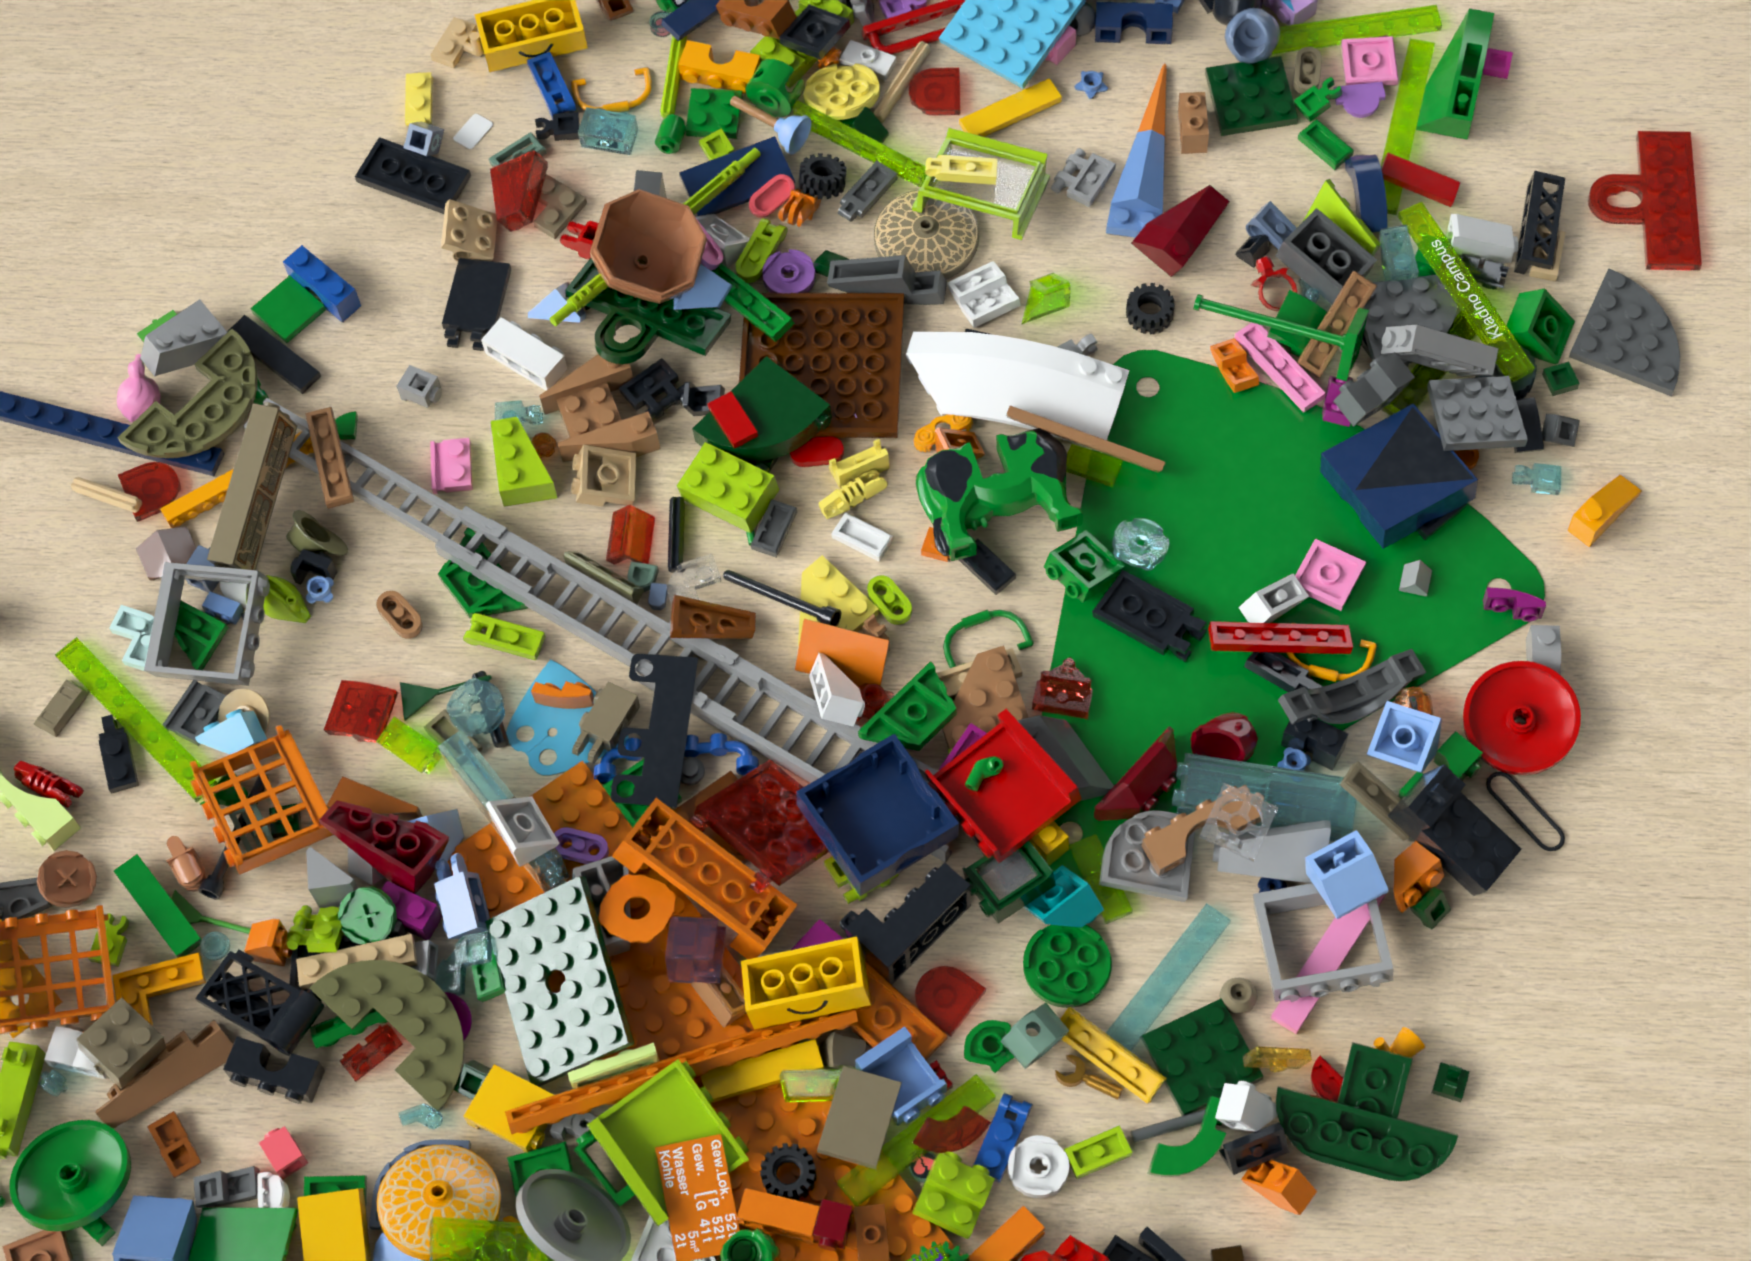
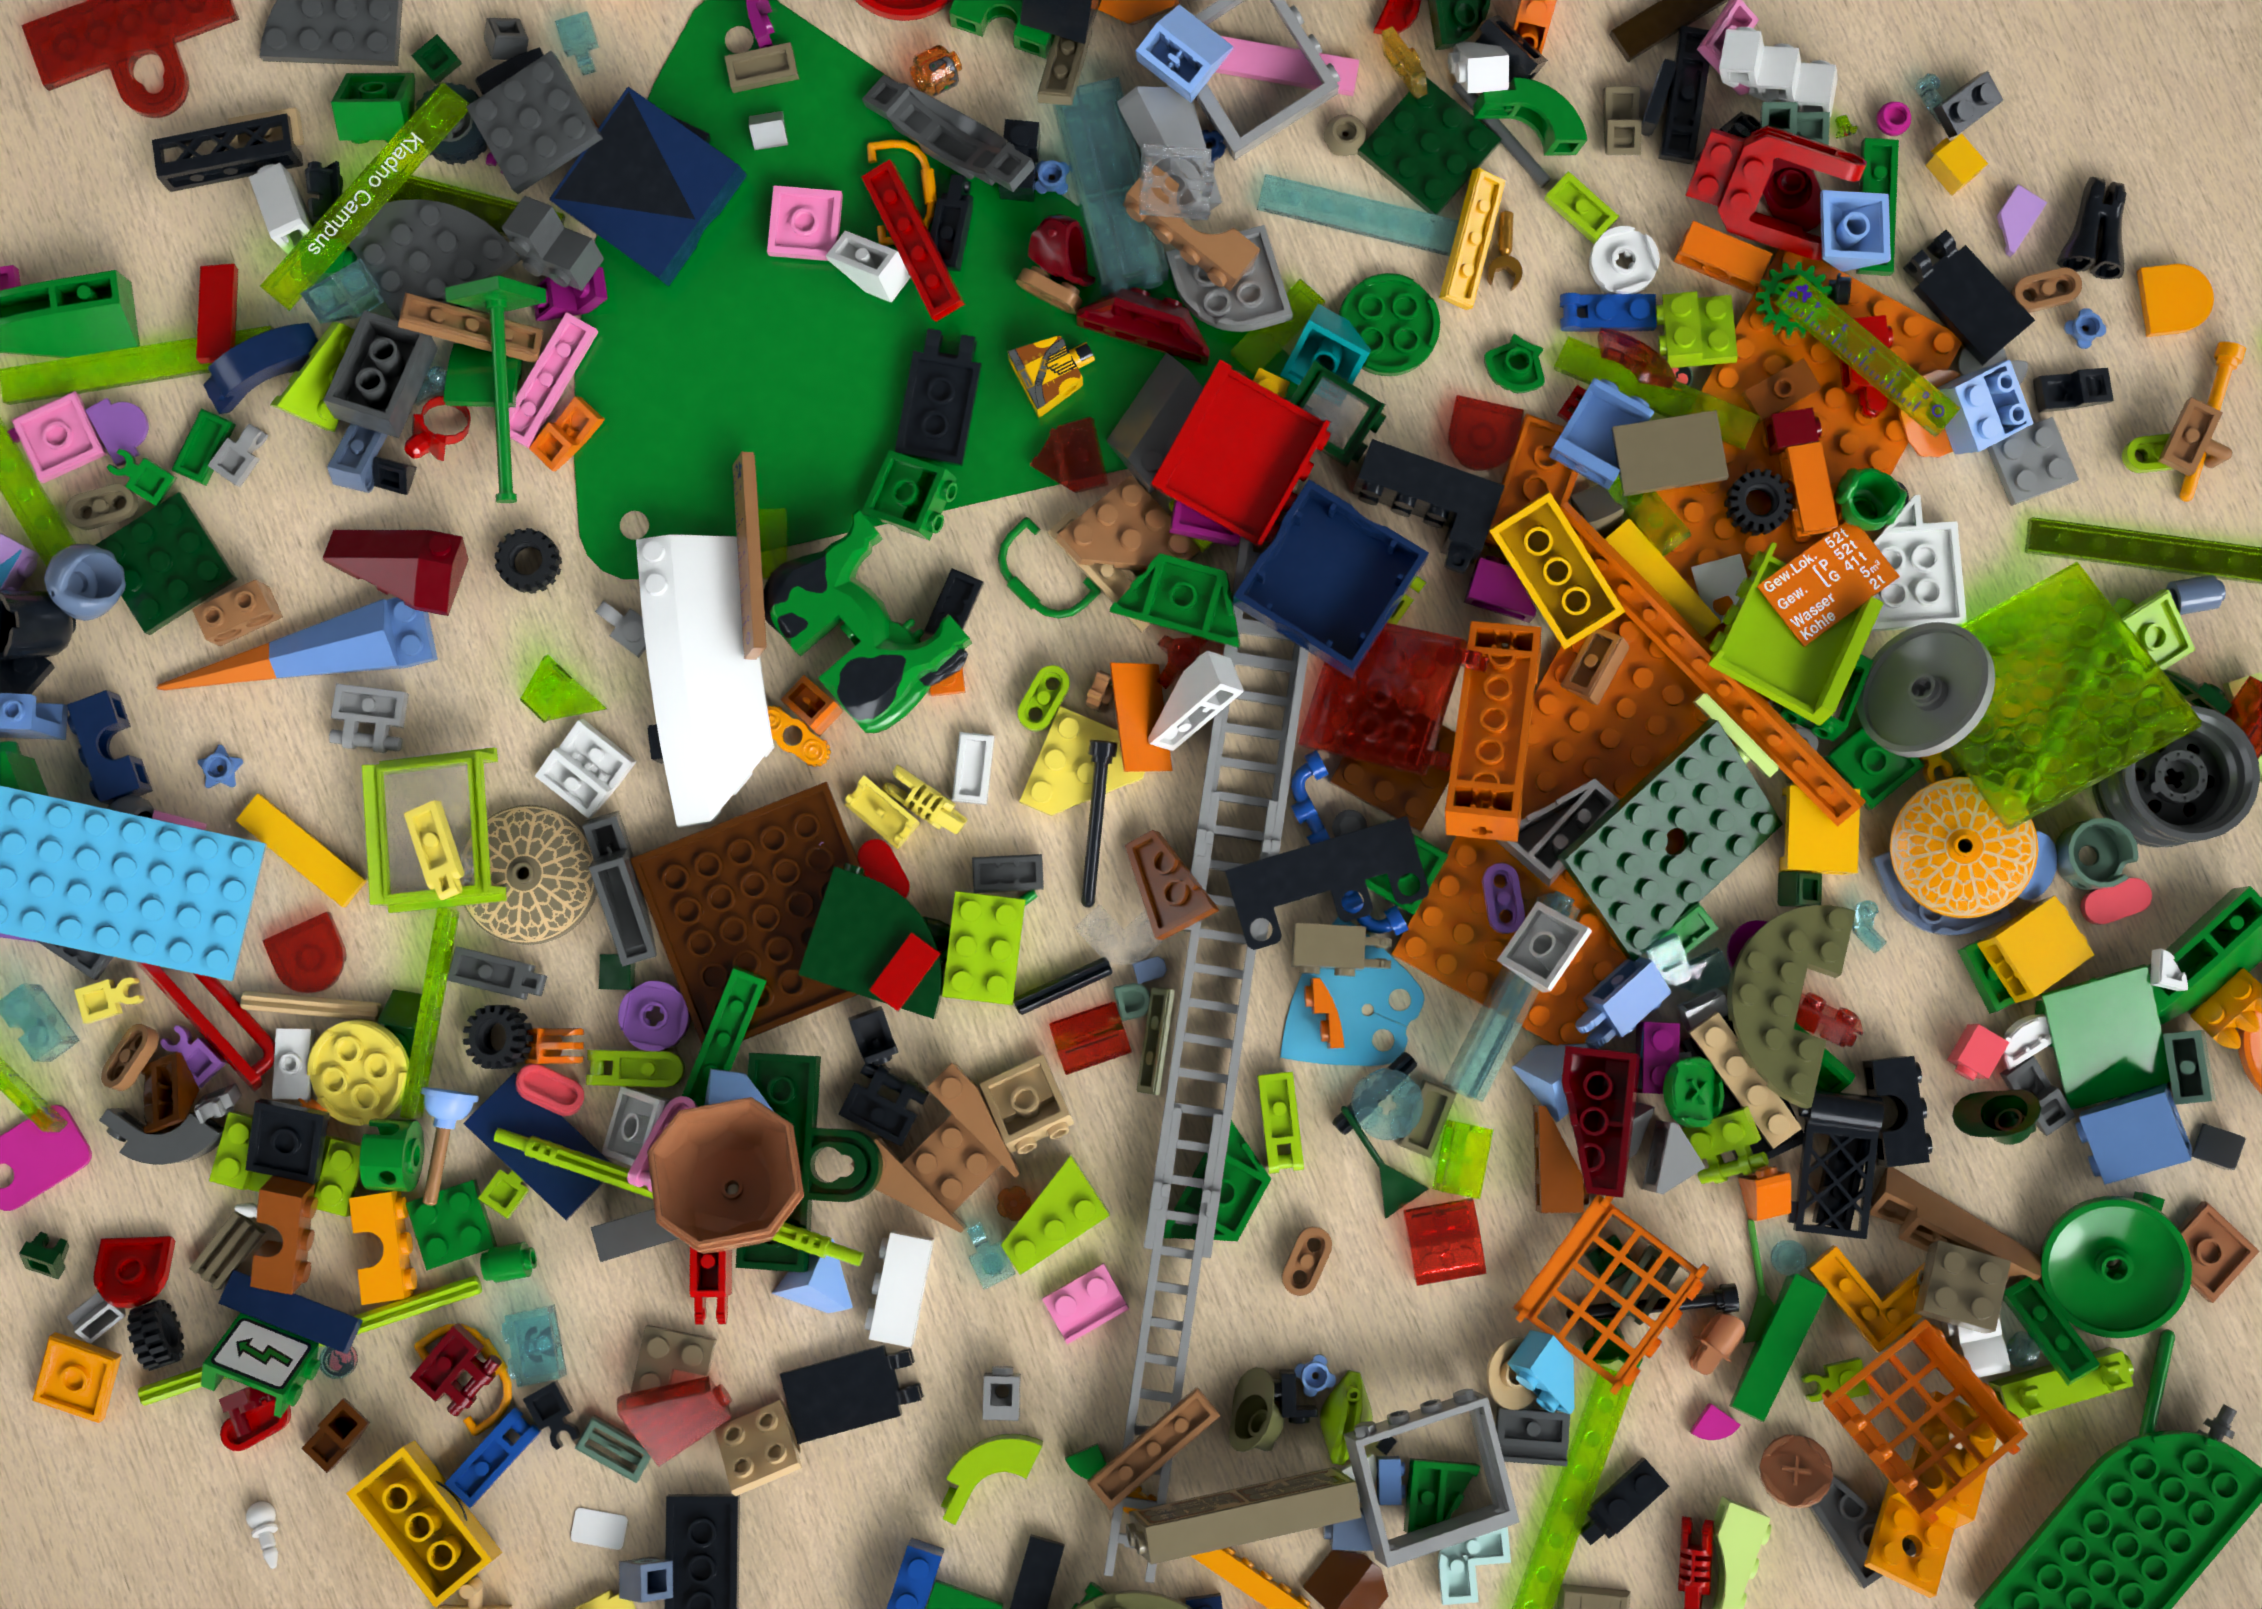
camera: 120 degrees left, 20 degrees up
(54, 1102) = (2050, 1330): none -> green plate
(131, 841) = (1714, 1424): none -> dark pink tile
(174, 1144) = (2019, 1178): dark orange slope -> none
(228, 1141) = (2002, 1115): none -> dark green piece
(382, 372) = (992, 1455): none -> lime arch
(625, 82) = (448, 1361): none -> dark red plate
(642, 930) = (1593, 778): orange piece -> none
(695, 950) = (1572, 704): plate -> none
(744, 1118) = (1719, 580): none -> white sticker
(983, 769) = (1226, 485): green arm -> none
(1028, 1048) = (1482, 311): sand green piece -> none
(1135, 696) = (1049, 371): none -> torso
(1137, 555) = (870, 453): clear light blue plate -> none
(1166, 1223) = (1622, 120): none -> dark tan slope
(1203, 716) = (1038, 284): none -> medium nougat plate
(1308, 158) = (235, 459): none -> light grey plate
(1406, 737) = (982, 61): light blue slope -> none
(1439, 350) = (472, 189): light grey door -> none
(1468, 593) = (761, 67): none -> dark tan tile

